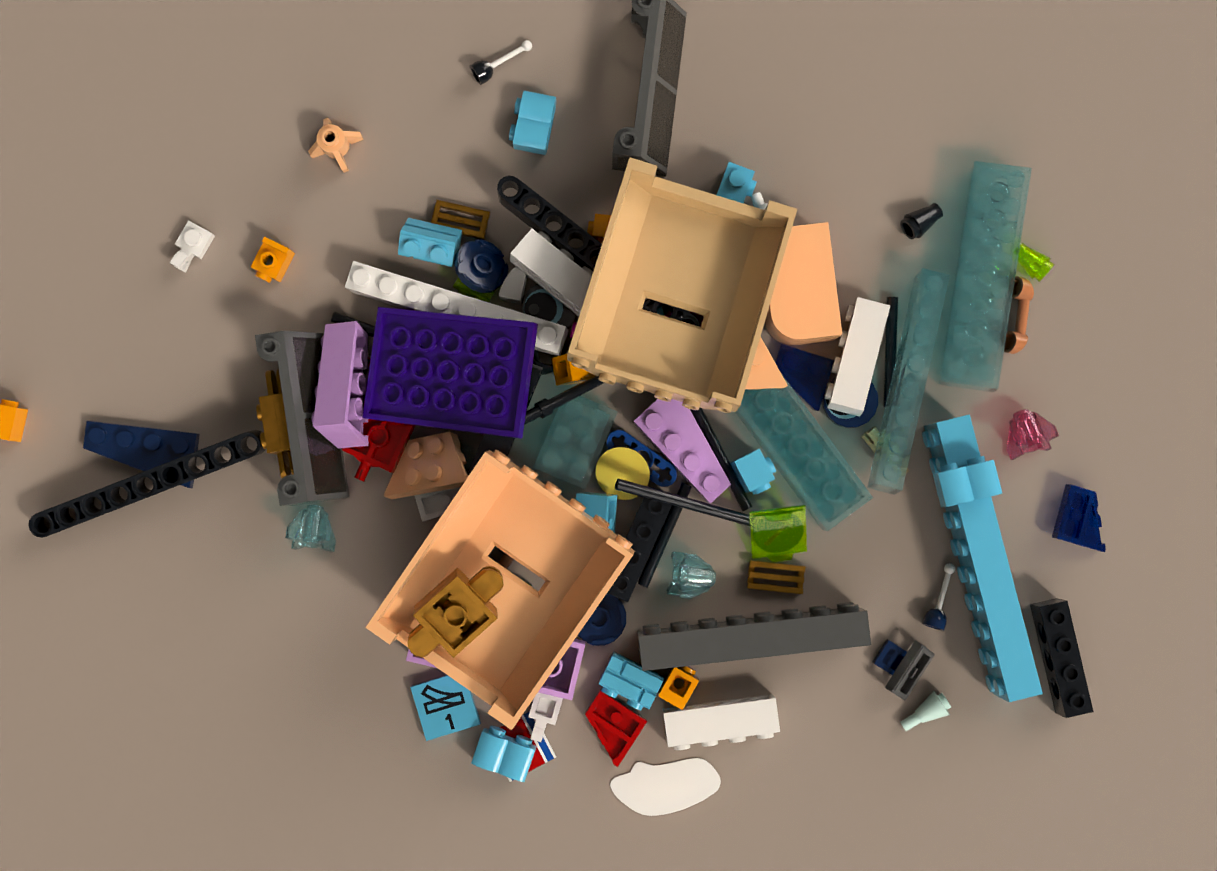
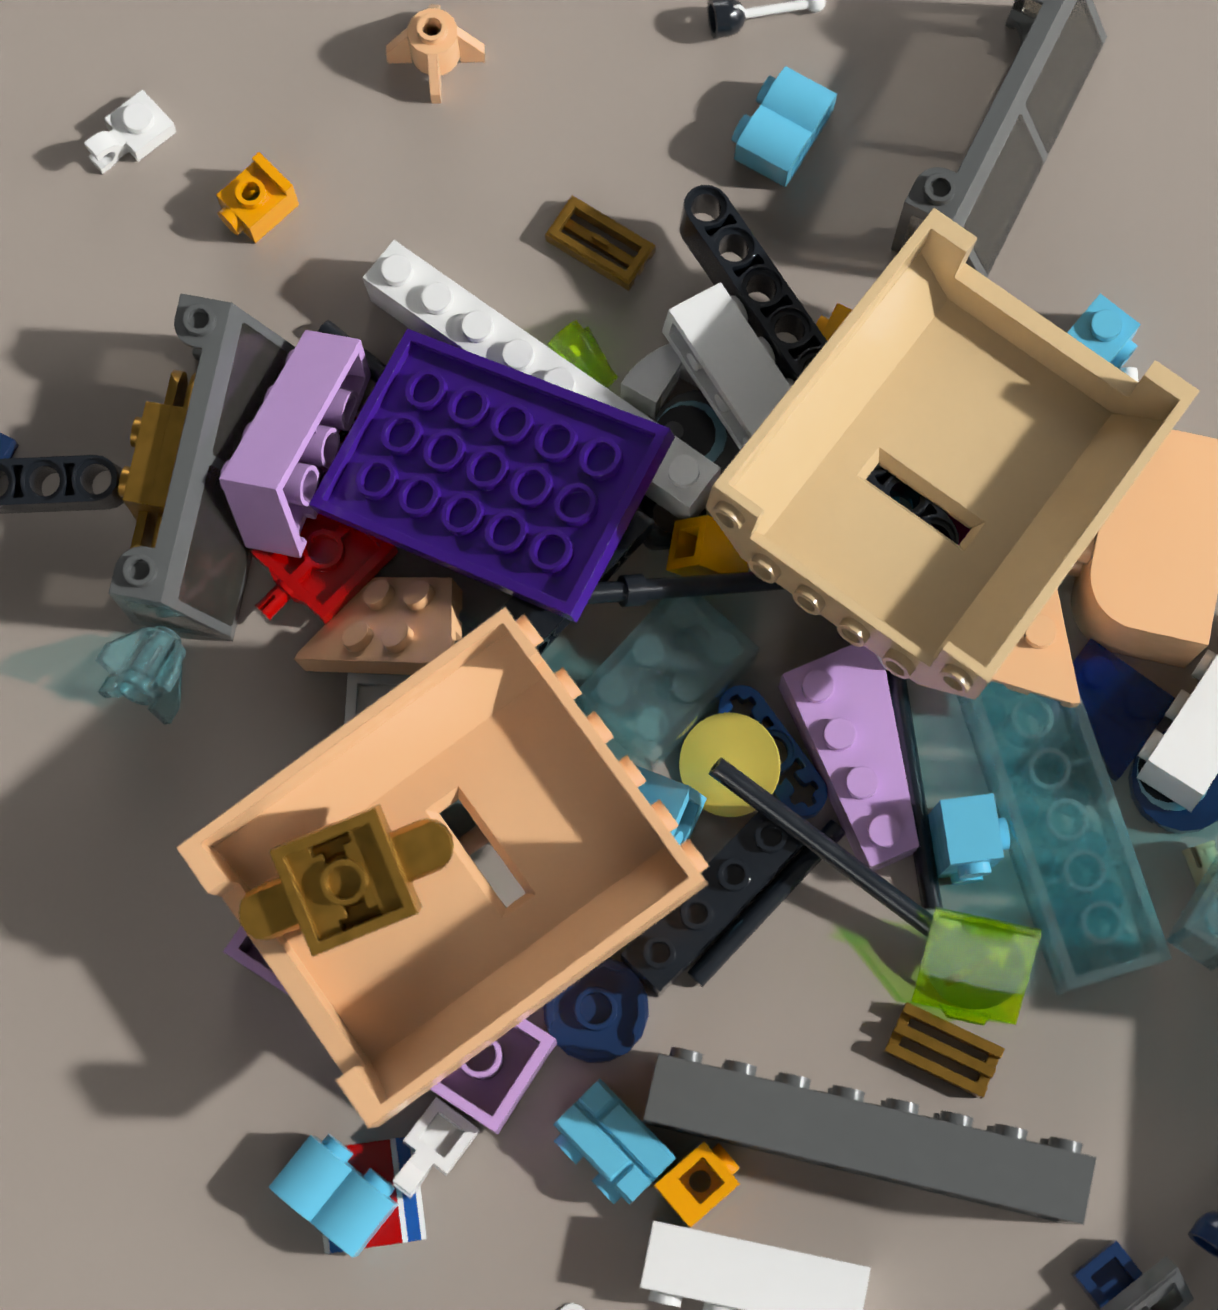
camera: 20 degrees right, 10 degrees down
(429, 242) = (535, 257): medium azure brick -> none
(444, 707) = (261, 1069): medium azure tile -> none
(481, 266) = (607, 325): dark blue tile -> none
(615, 725) = (554, 1215): red wing -> none
(690, 576) = (789, 987): clear light blue brick -> none

